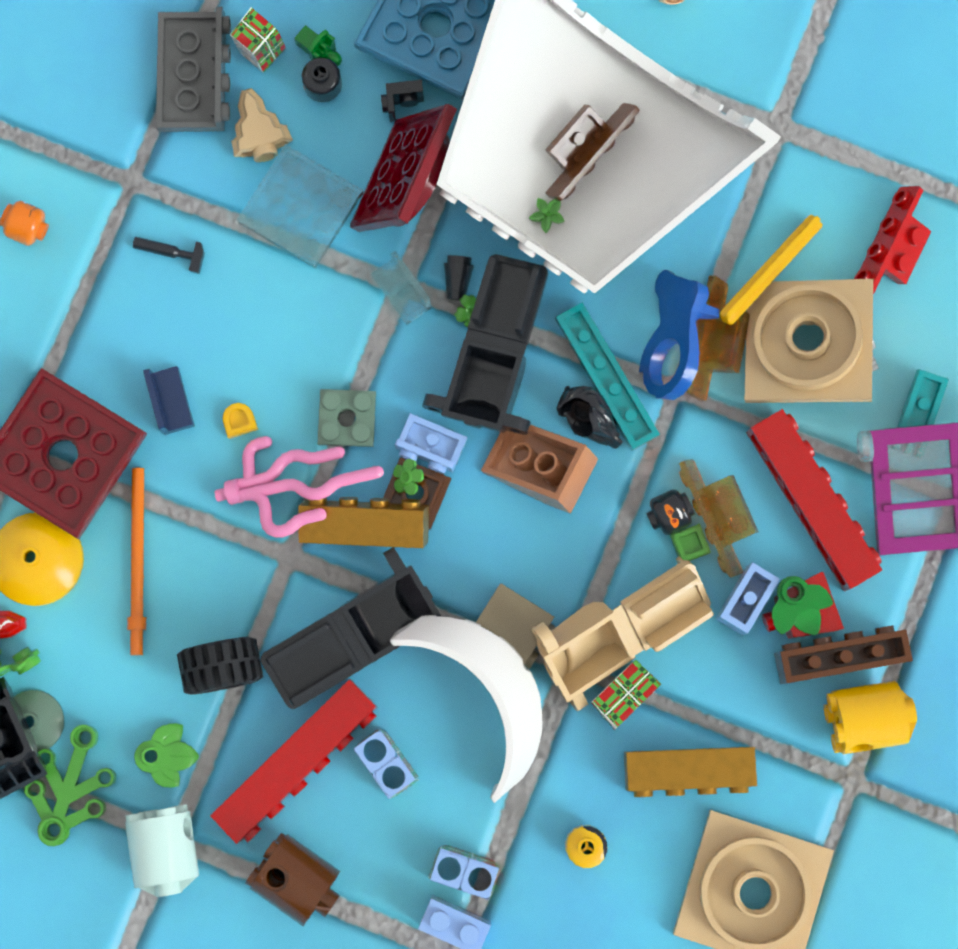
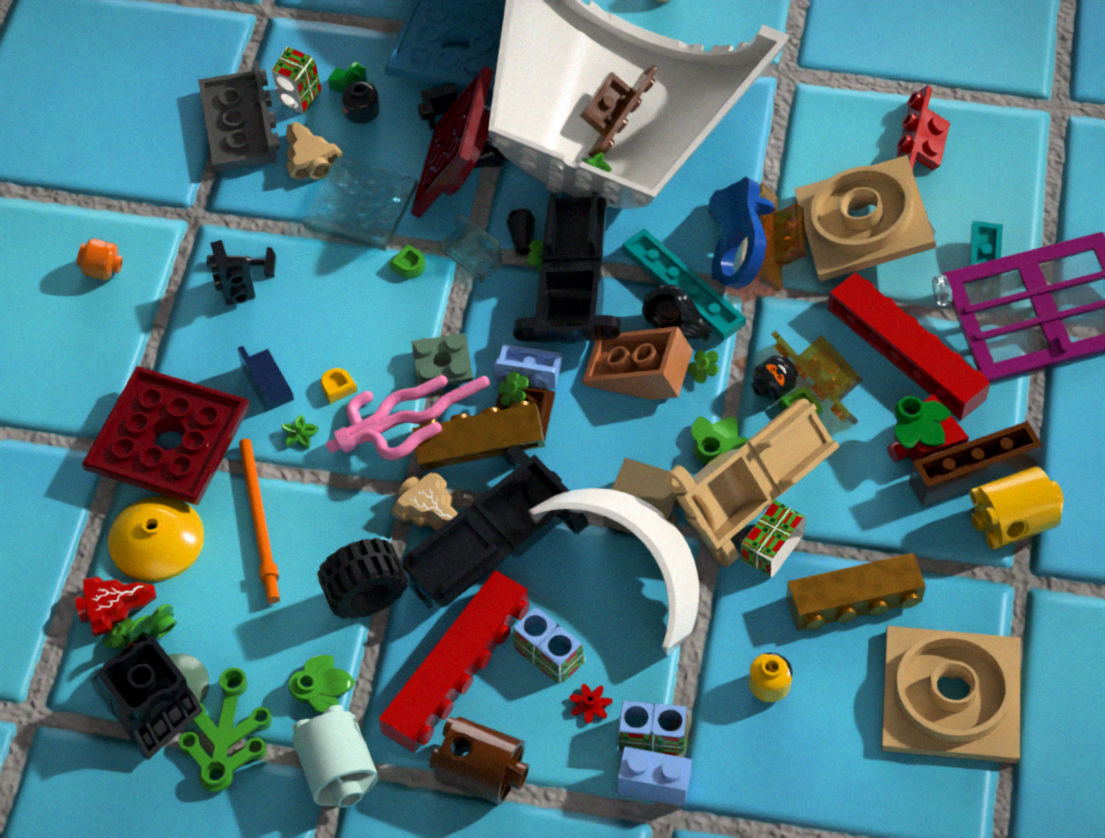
camera: 10 degrees left, 25 degrees down
(143, 269) = (230, 277): none -> black bracket
(192, 468) = (300, 432): none -> bright green plant
(301, 583) = (424, 502): none -> tan rock
(336, 287) = (408, 262): none -> bright green tile
(418, 822) = (590, 703): none -> red plant
(604, 479) = (703, 366): none -> bright green plant
(604, 565) = (717, 437): none -> bright green plate
(747, 599) = (868, 432): light blue brick -> none
(770, 270) = (811, 171): yellow axle -> none

